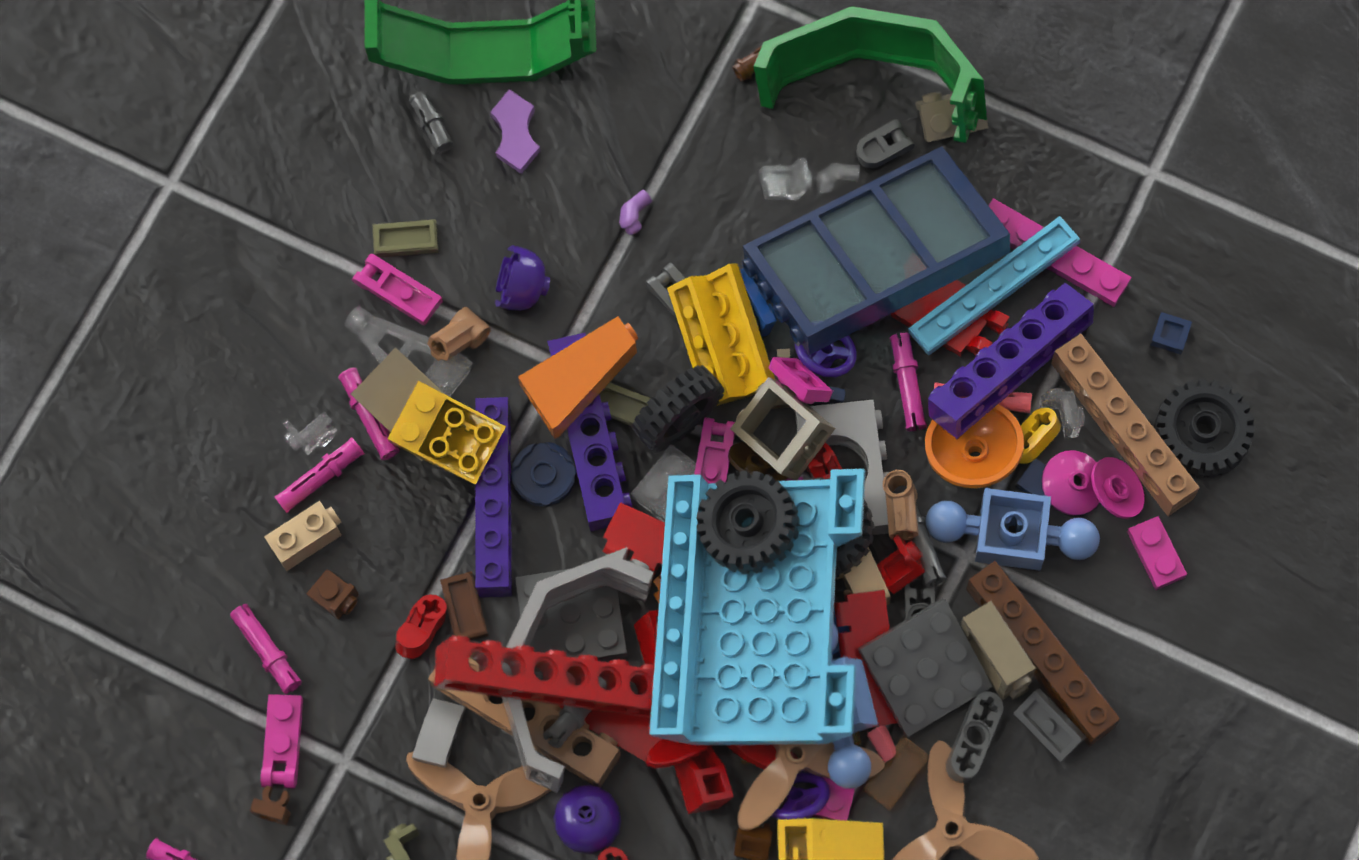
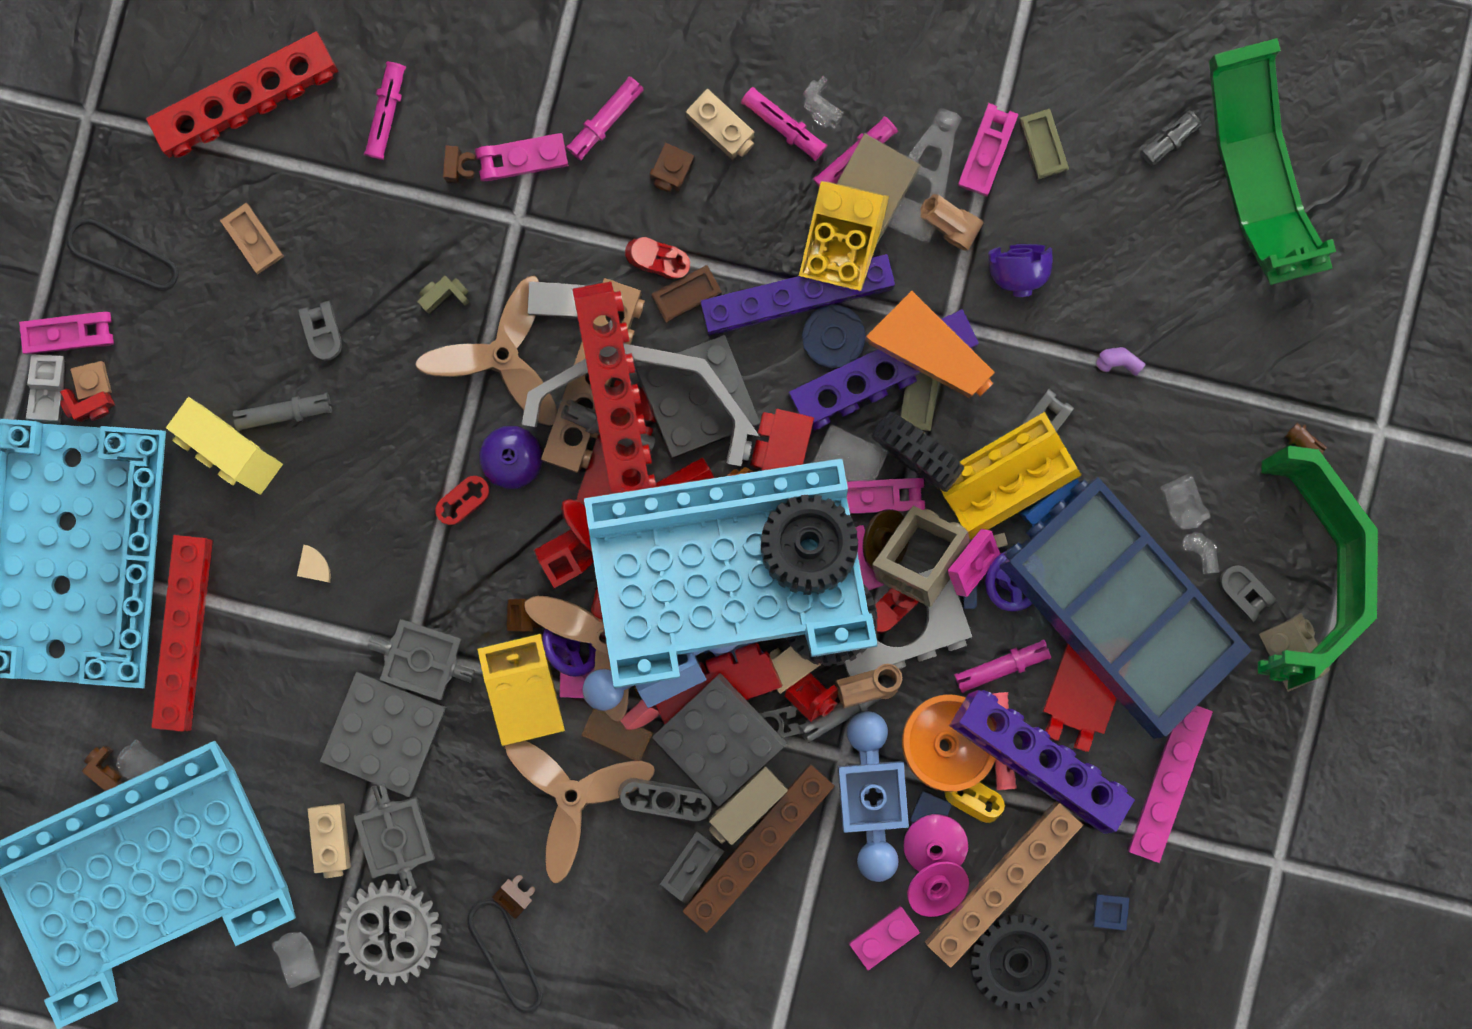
camera: 70 degrees right, 15 degrees up
(513, 117) = (1195, 218): medium lavender tile -> none
(994, 285) = (1118, 731): medium azure tile -> none
(1071, 415) = (1002, 831): clear bracket -> none

